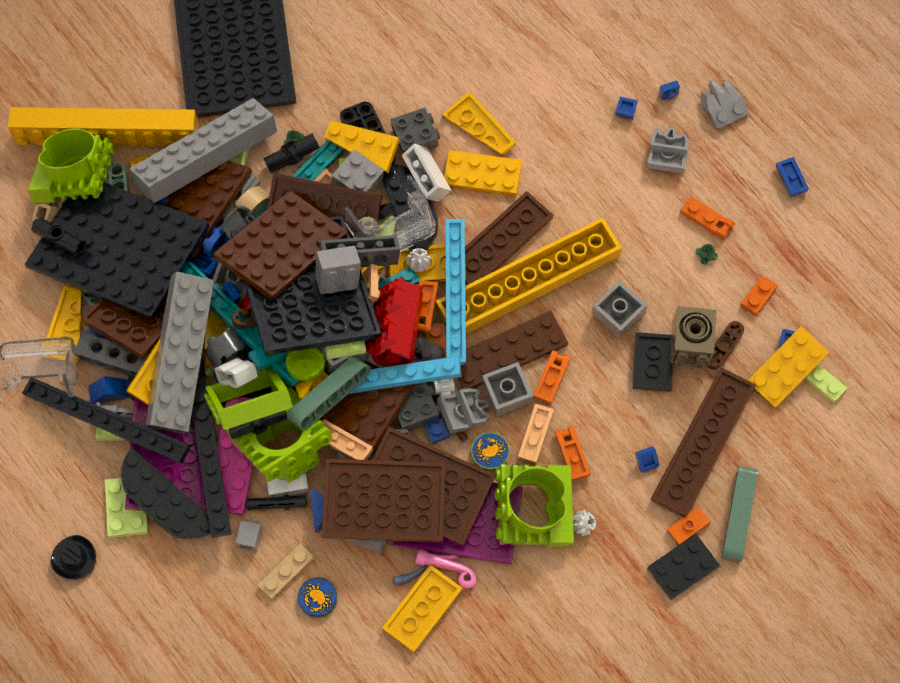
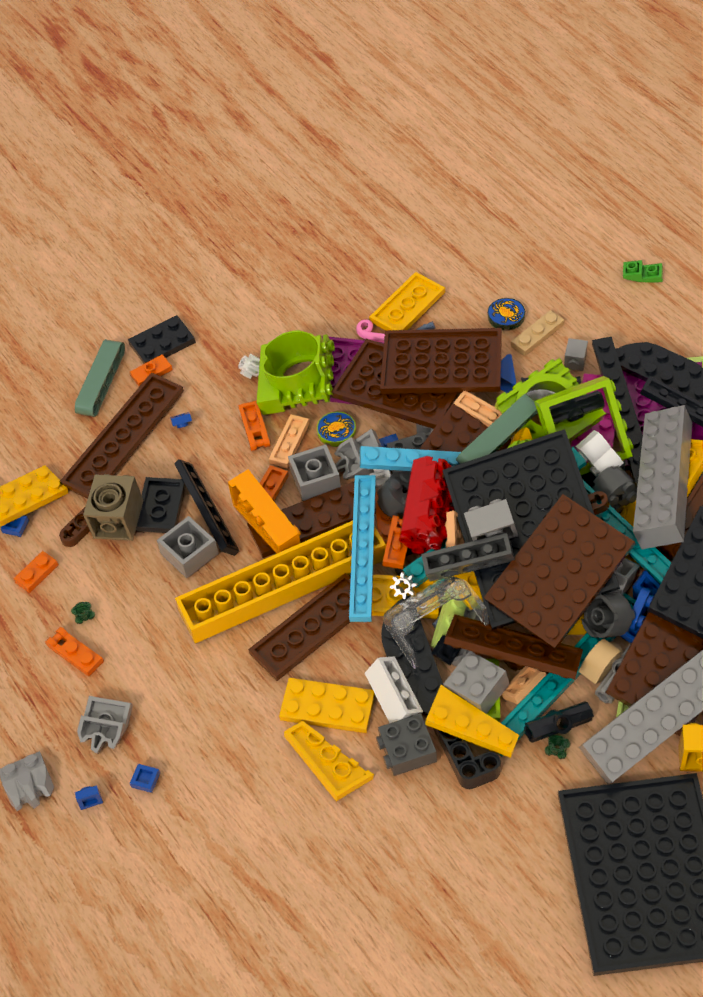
camera: 175 degrees left, 15 degrees down
(168, 654) = (642, 273): none -> bright green slope
(549, 333) = (262, 512): none -> light orange wedge
(608, 358) = (207, 507): none -> black tile

